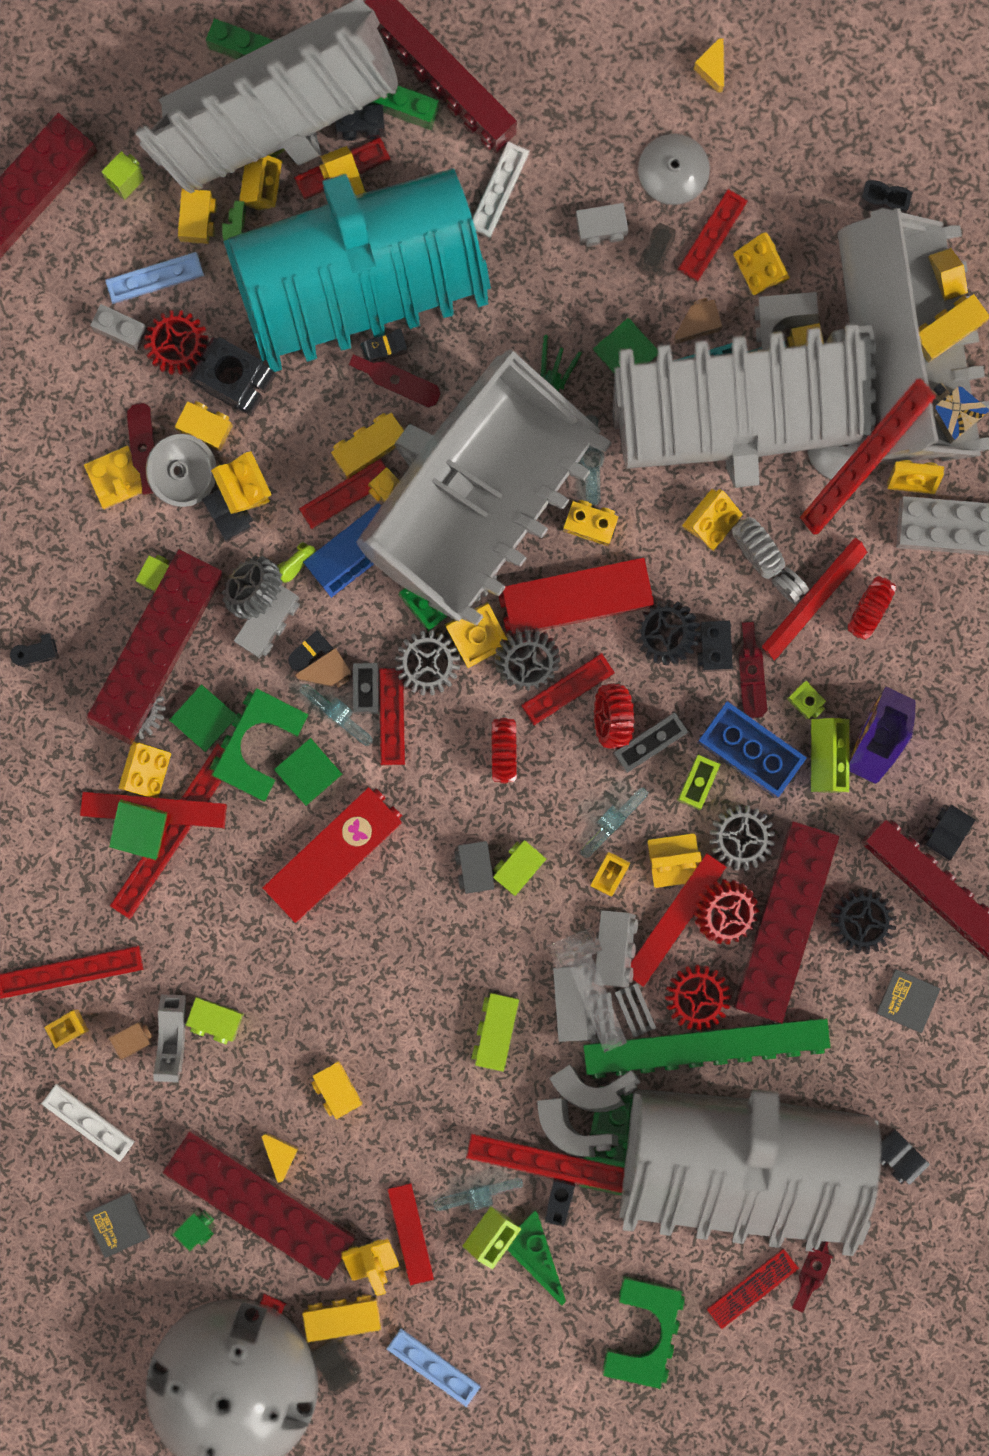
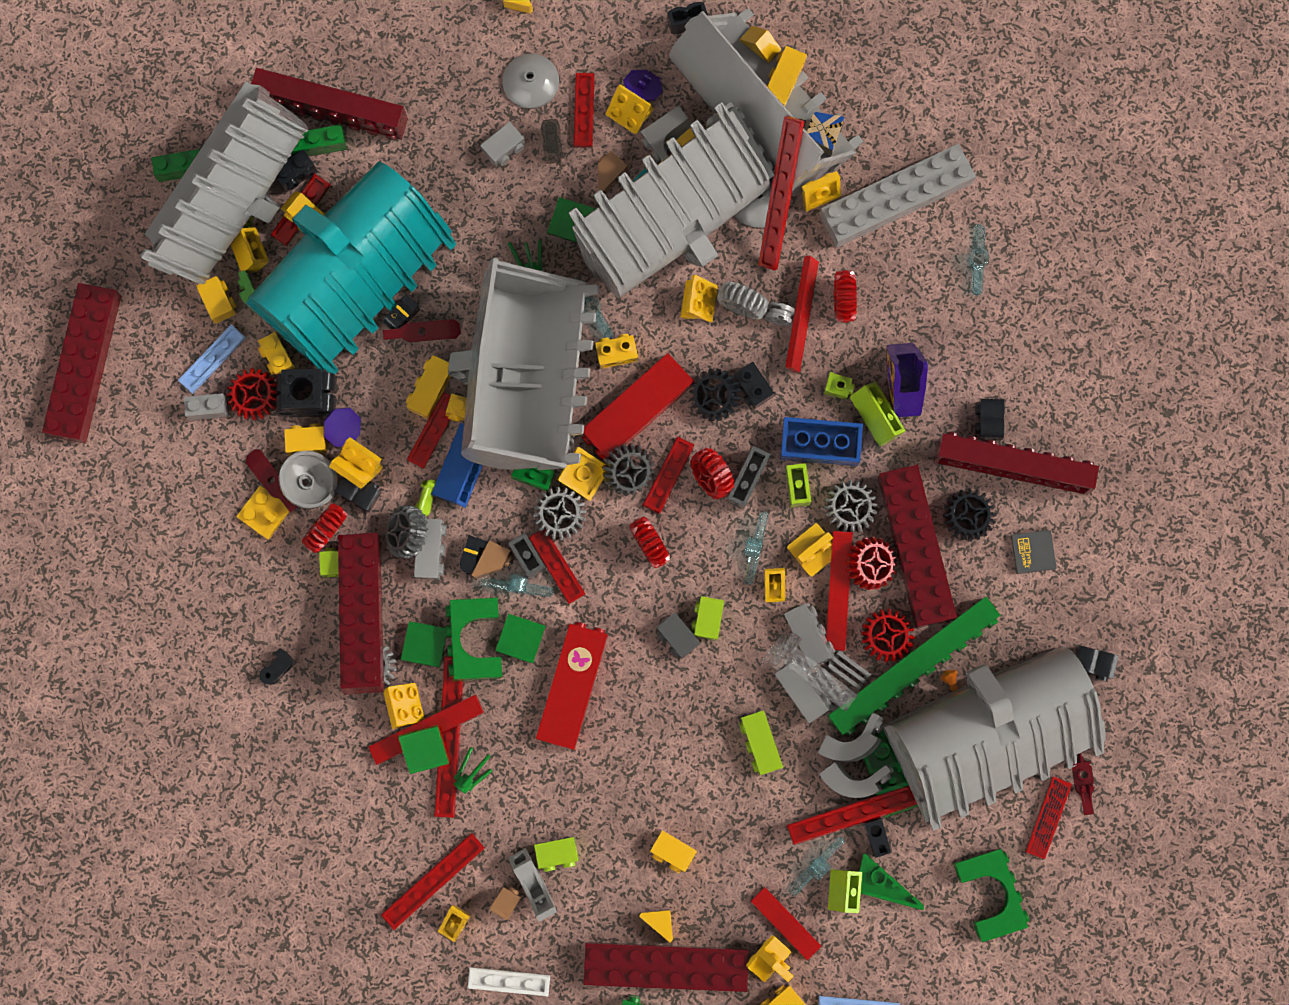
camera: 25 degrees left, 5 degrees down
(123, 174) = (149, 299): lime brick -> none
(162, 889) = (464, 782): none -> green plant
(168, 533) = (324, 528): none -> red gear
(225, 314) = (275, 352): none -> yellow brick
(250, 433) = (341, 425): none -> dark purple piece
(499, 189) = (418, 160): white tile -> none
(737, 1081) = (950, 678): none -> orange rock
(752, 685) = (795, 397): dark red piece -> none
(793, 245) = (643, 84): none -> dark purple piece

